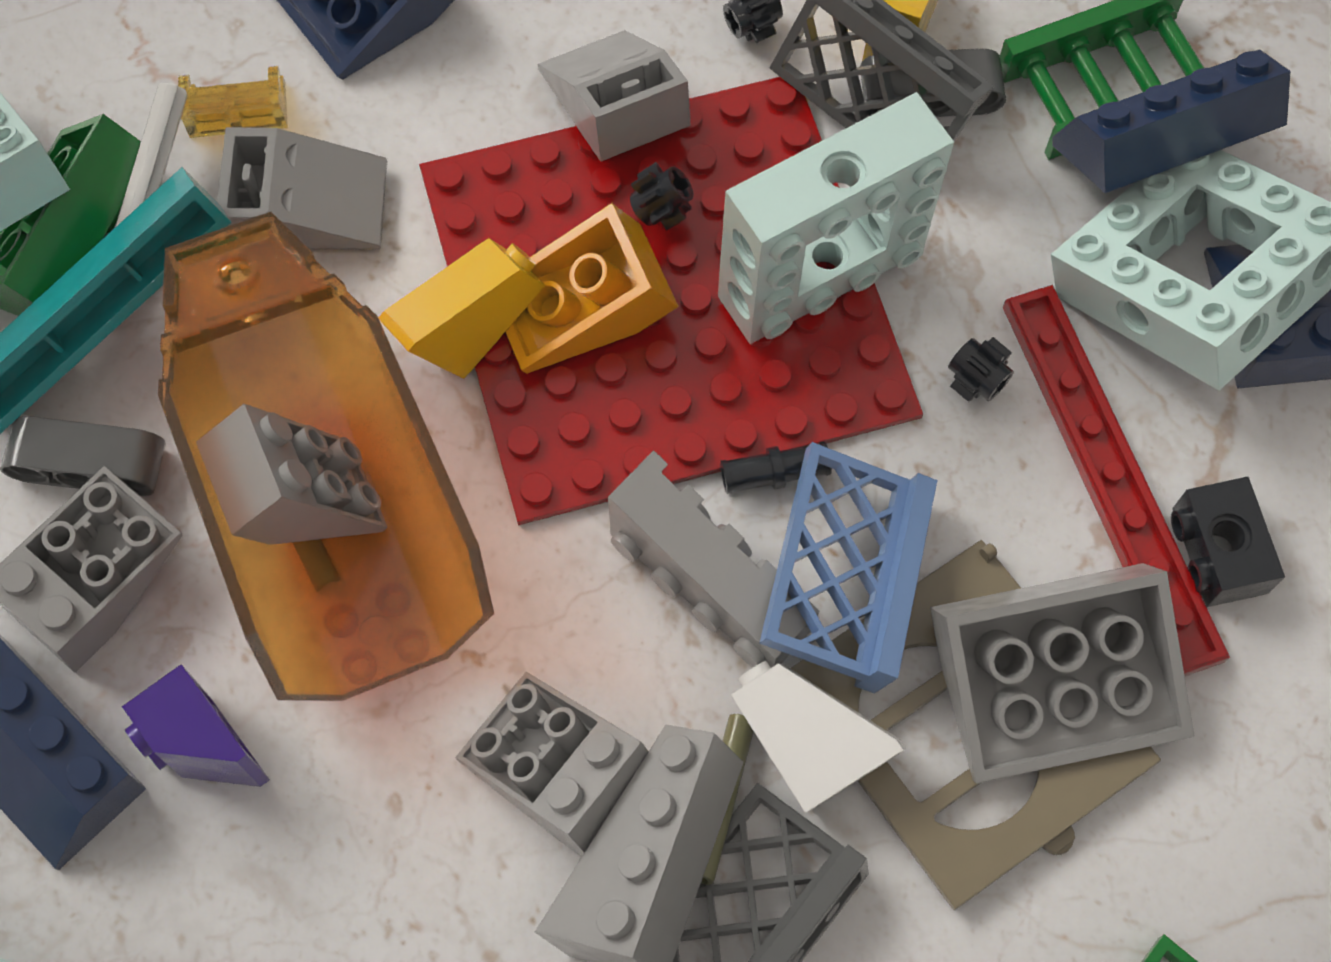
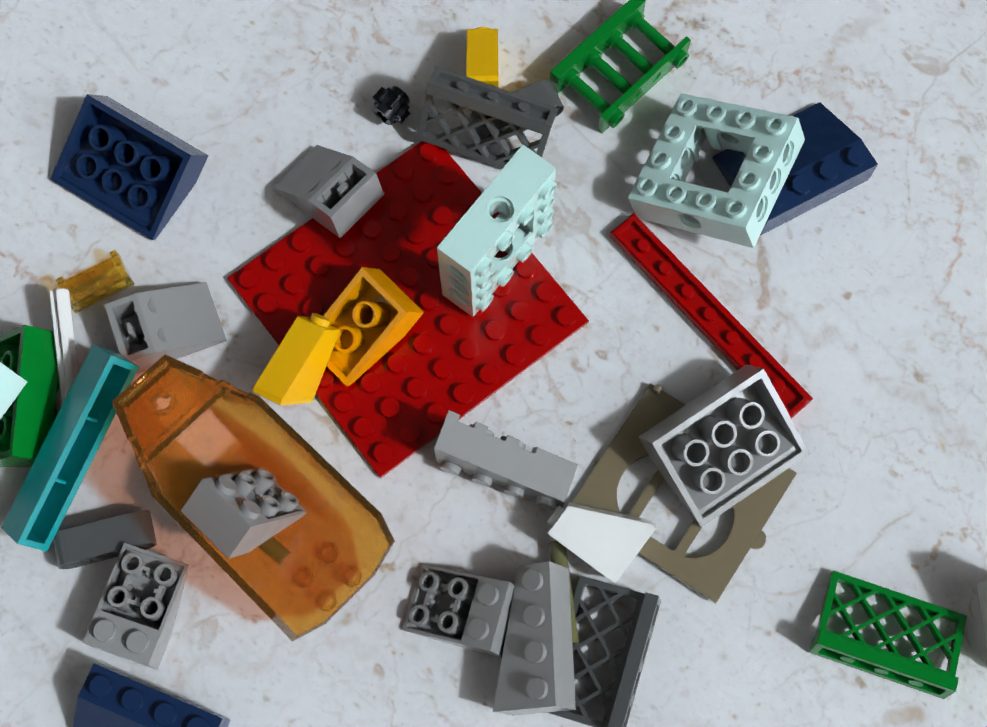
camera: 20 degrees left, 5 degrees up
(186, 730) = (246, 679): dark purple slope -> none
(661, 196) = (386, 247): black gear -> none
(766, 469) = (517, 386): black pin -> none
(889, 589) = (611, 431): medium blue fence -> none
(980, 369) = (612, 282): black gear -> none
(1178, 121) = (672, 92): dark blue slope -> none
(1234, 514) = (786, 314): black brick -> none

